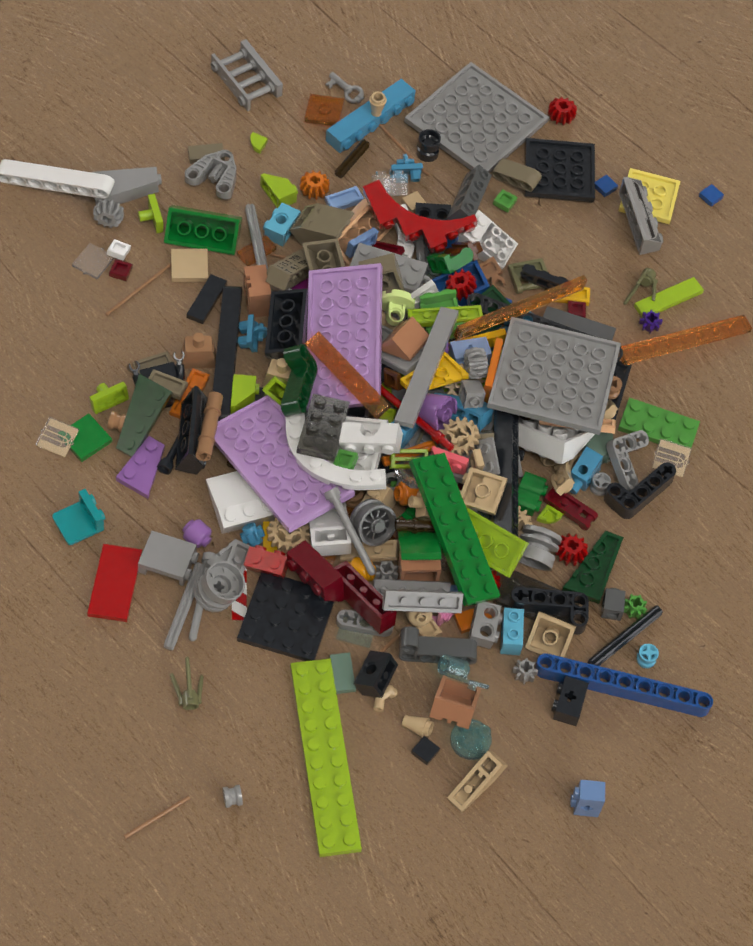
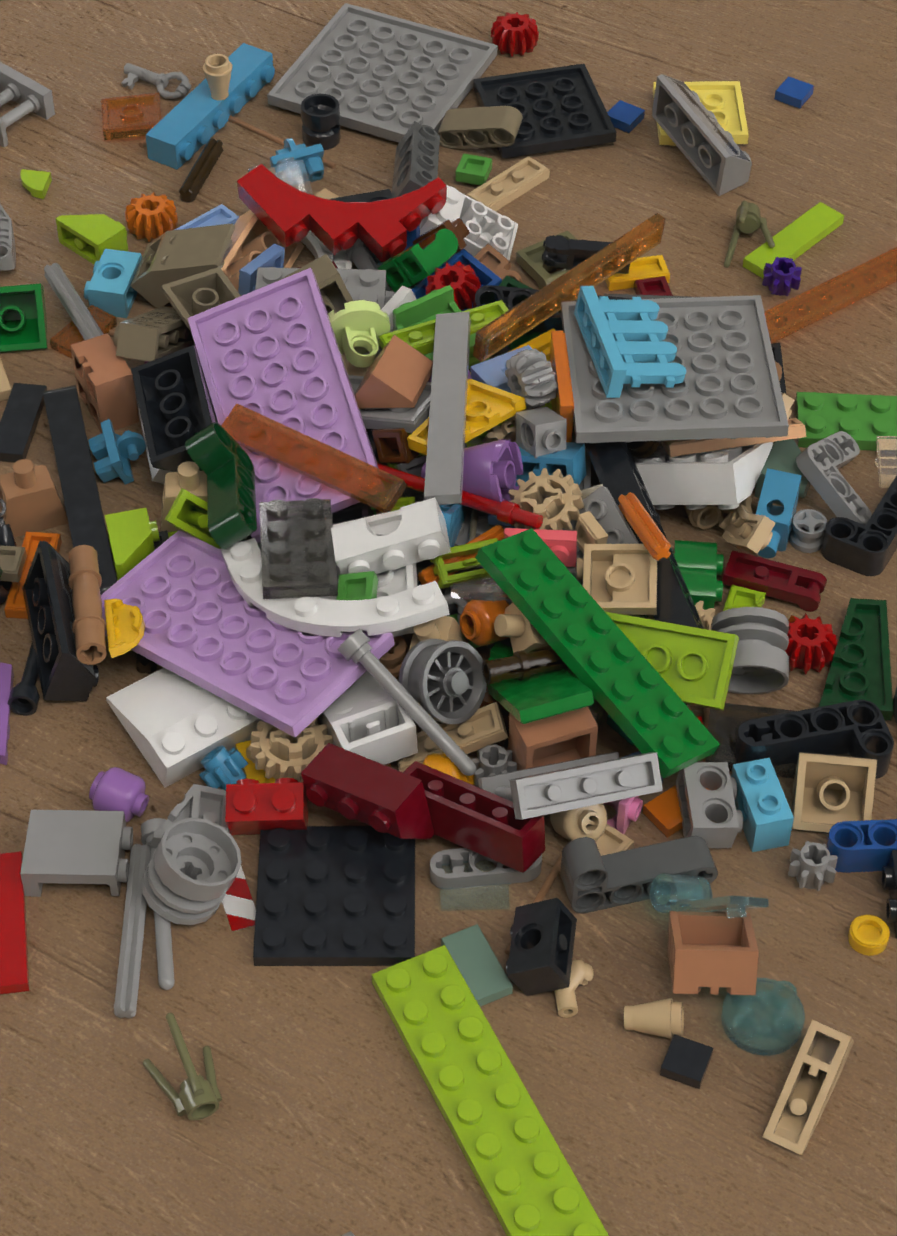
camera: 10 degrees left, 10 degrees down
(224, 444) = (123, 625): none -> yellow tile
(503, 466) = (644, 526): none -> orange axle
(521, 216) = (510, 184): none -> tan tile
(524, 345) = (622, 336): none -> medium azure fence
(539, 714) = (868, 935): none -> yellow tile

